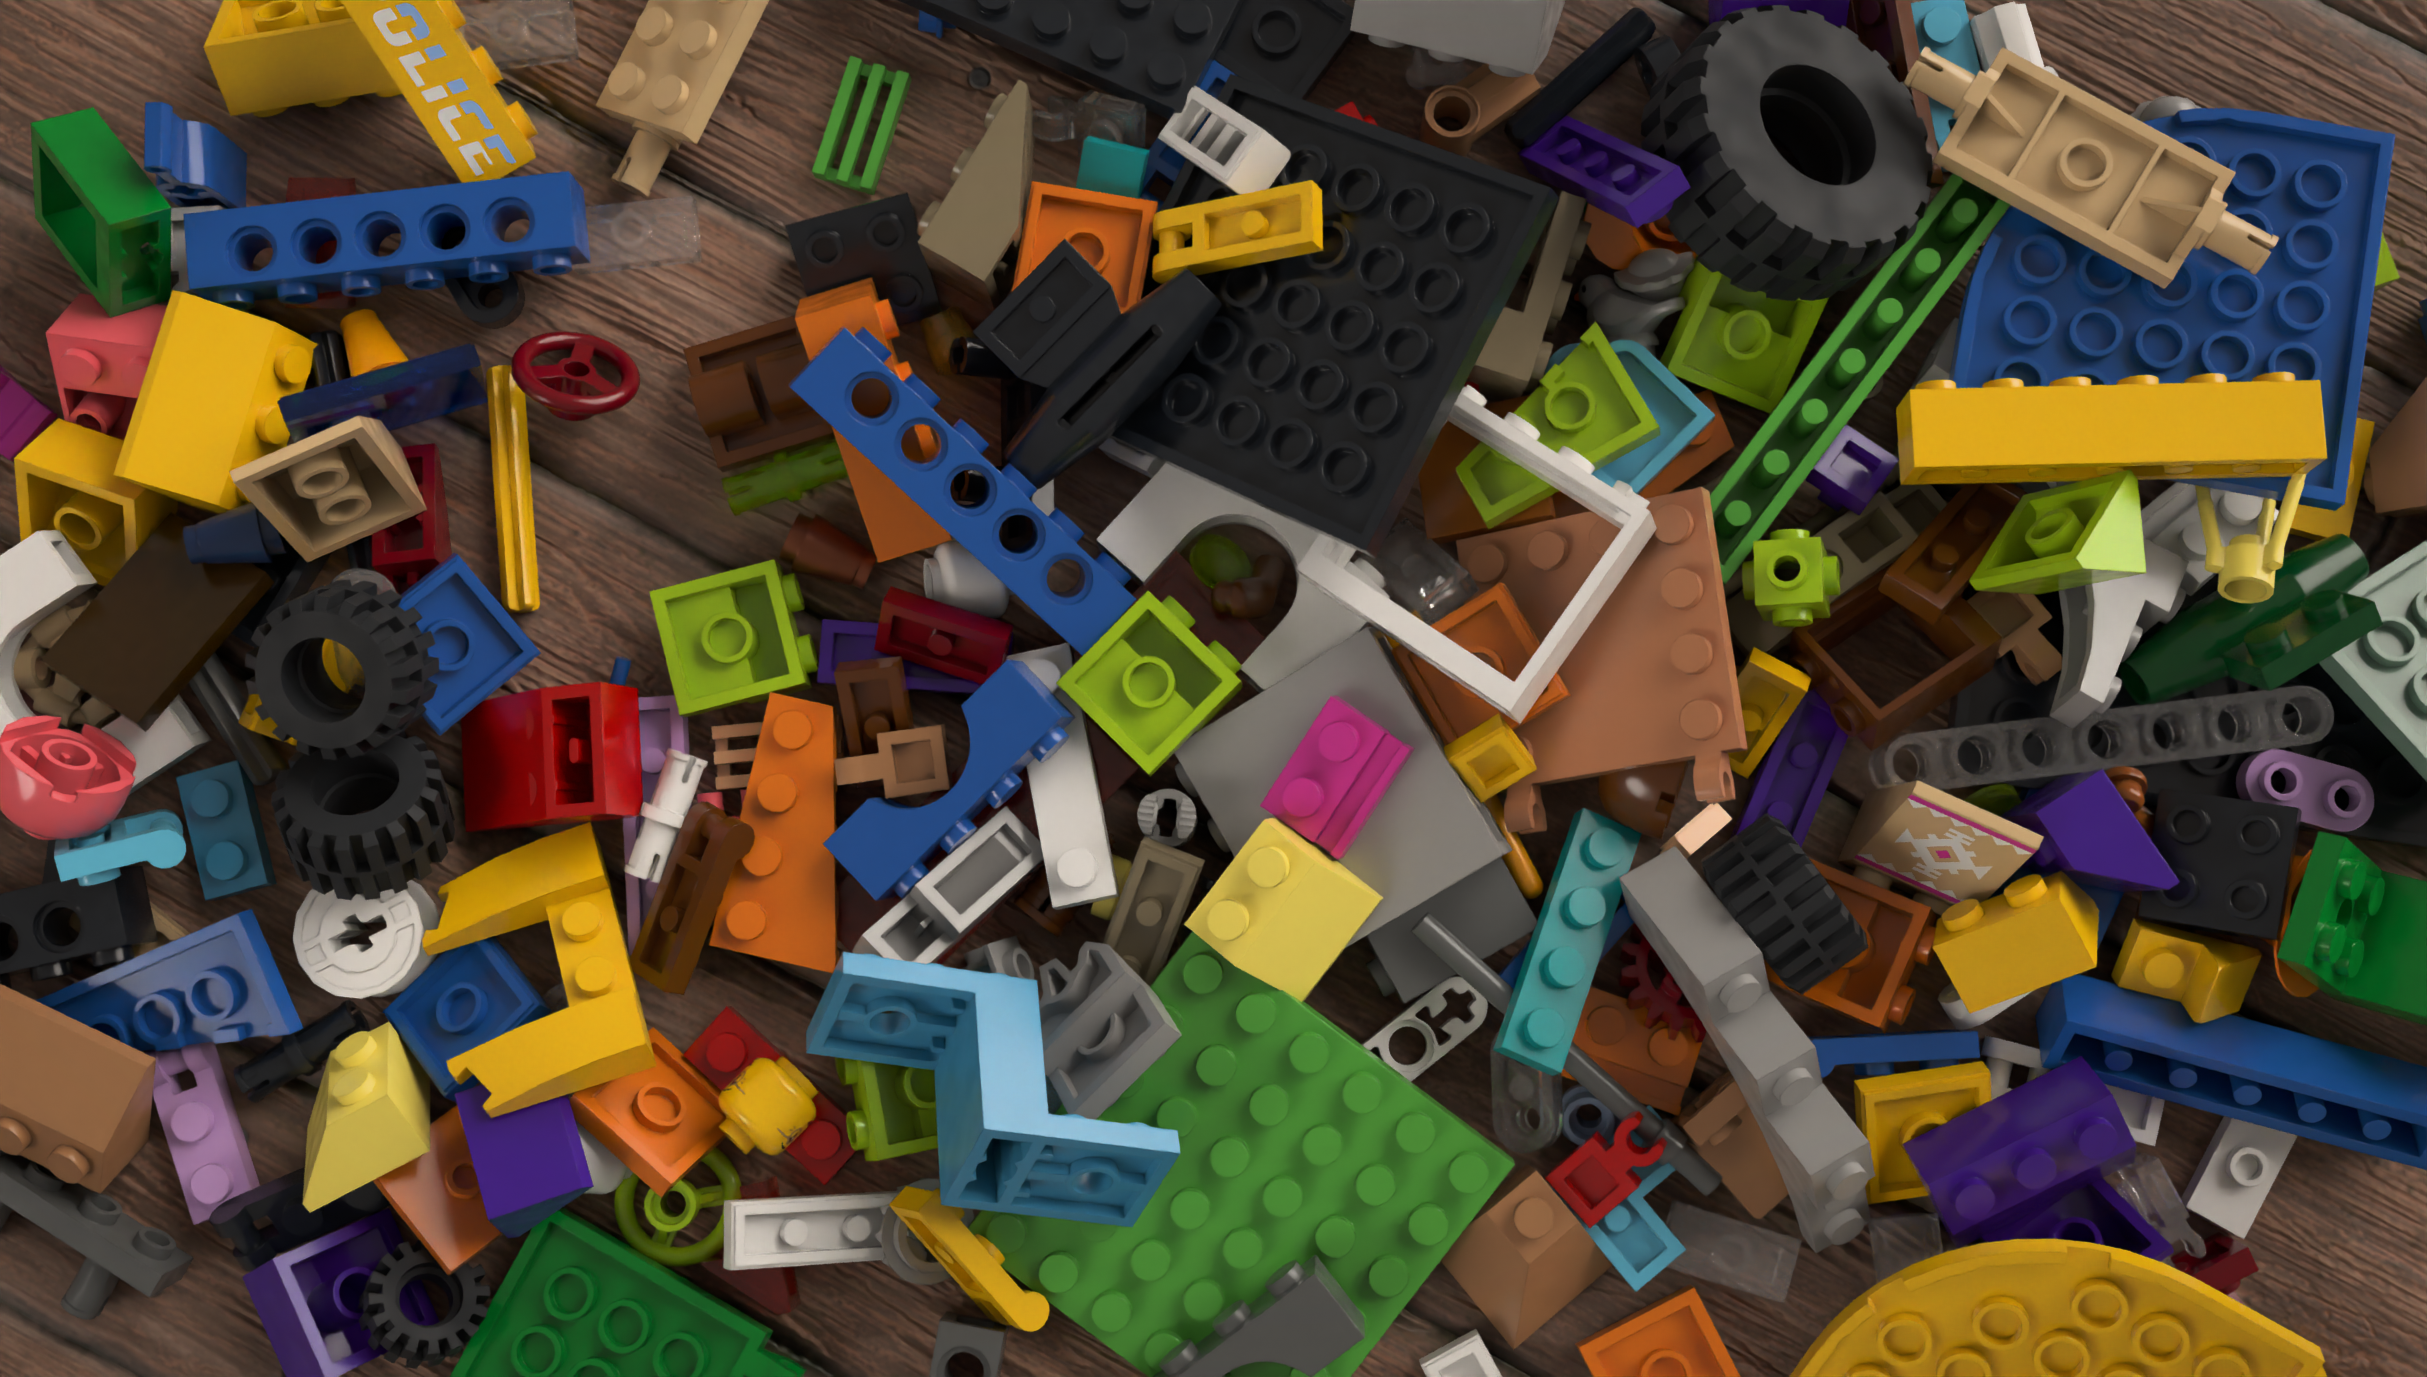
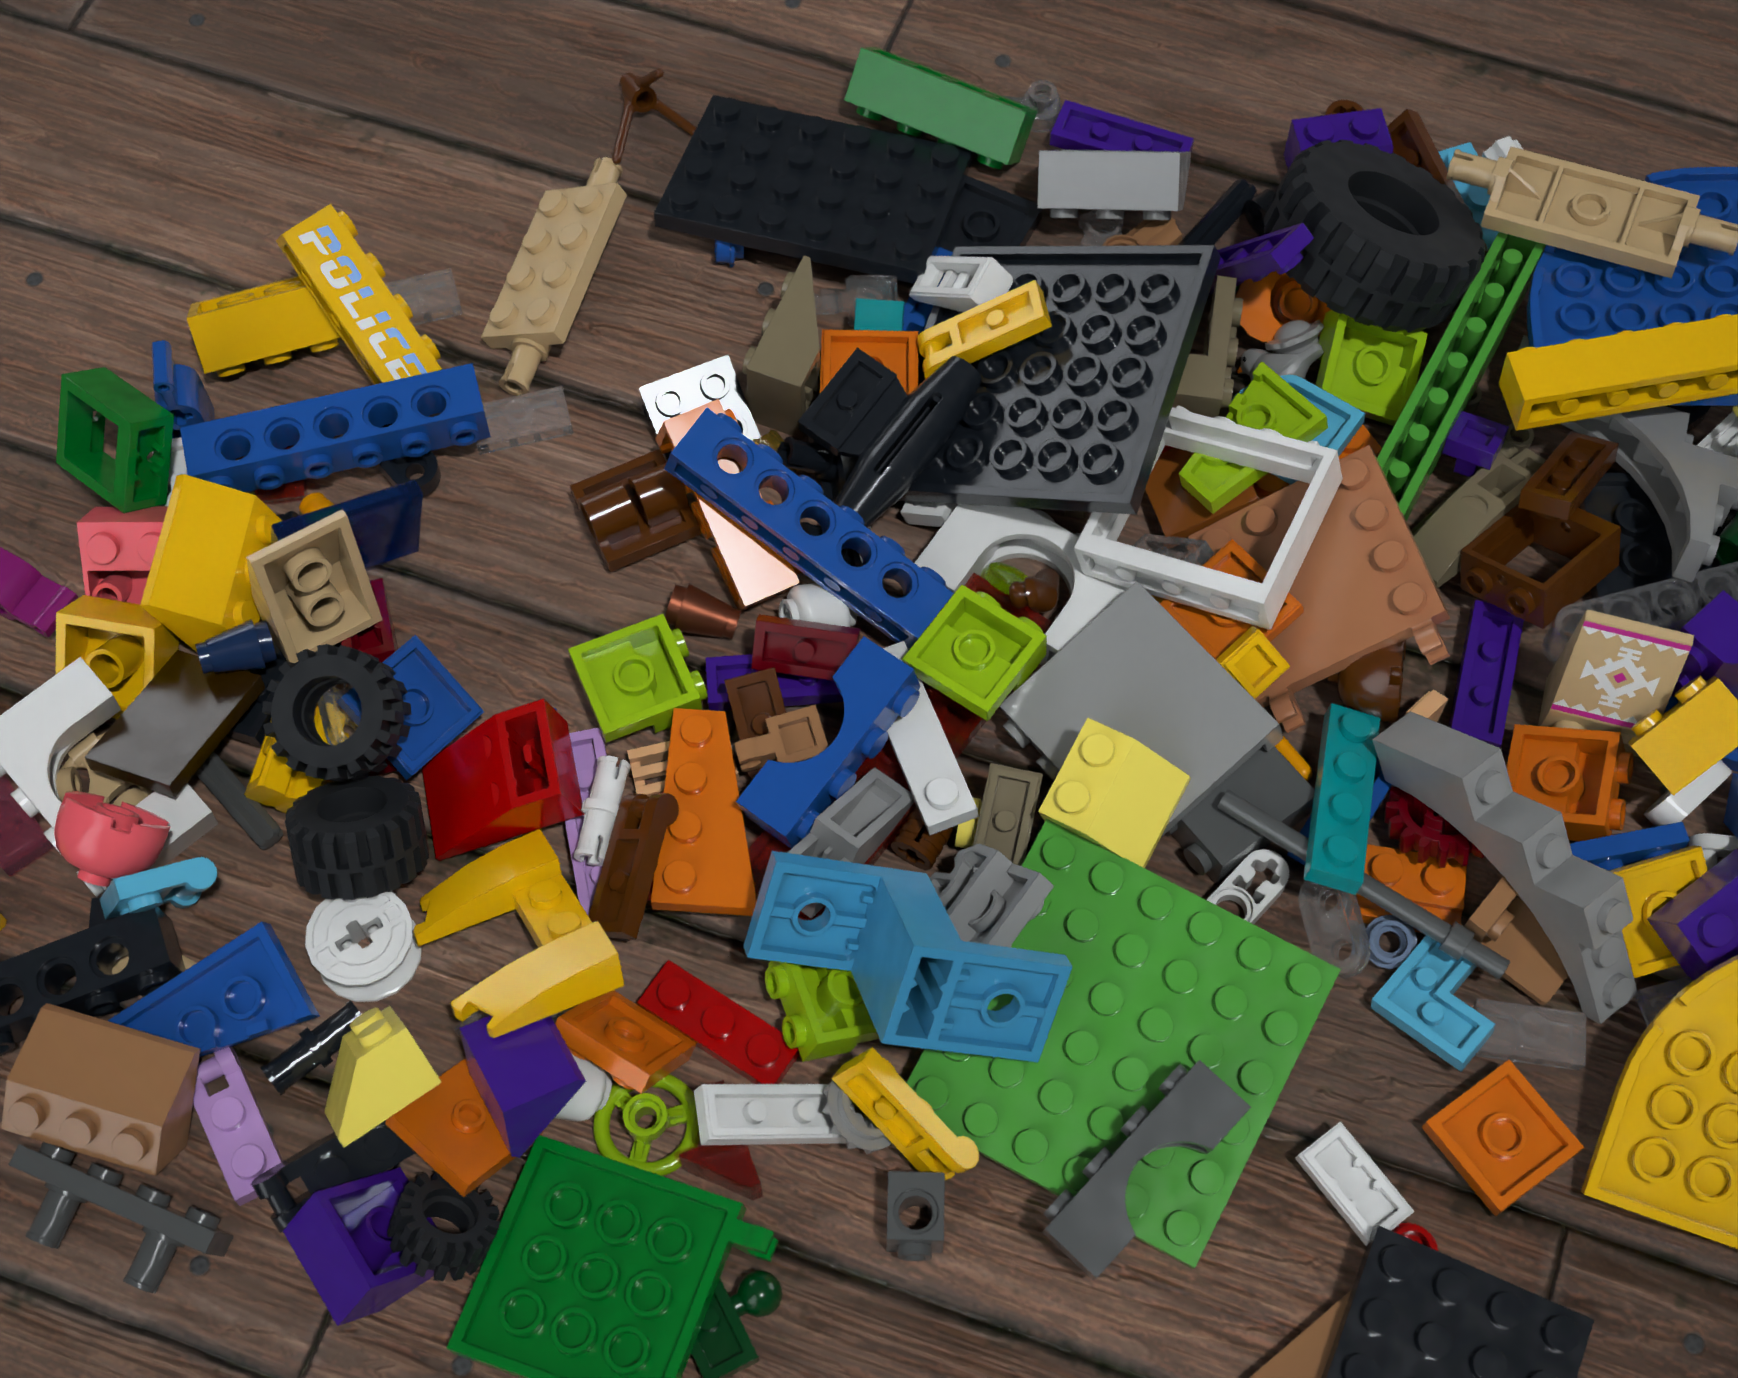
camera: 10 degrees left, 20 degrees down
(225, 831) = (239, 888): dark azure plate -> none
(460, 1004) = (441, 976): blue plate -> none
(512, 492) = (446, 602): yellow axle -> none
(572, 386) = (488, 514): dark red piece -> none
(767, 1106) = (717, 1016): yellow head -> none
(784, 478) = (662, 566): clear neon green pin -> none
(876, 77) = (689, 296): bright green tile -> none
(1185, 822) = (1006, 749): light grey hinge -> none
(1336, 777) = (1138, 688): dark pink plate -> none
(1524, 1256) = (1363, 1058): medium nougat slope -> none
(1600, 1174) = (1410, 971): red plate -> none
(1768, 698) = (1461, 599): yellow slope -> none
(1784, 904) = (1519, 721): black tyre -> none
(1798, 600) = (1451, 508): lime brick -> none
(2017, 622) = (1646, 546): medium nougat plate -> none
(2067, 538) = (1652, 450): lime slope -> none

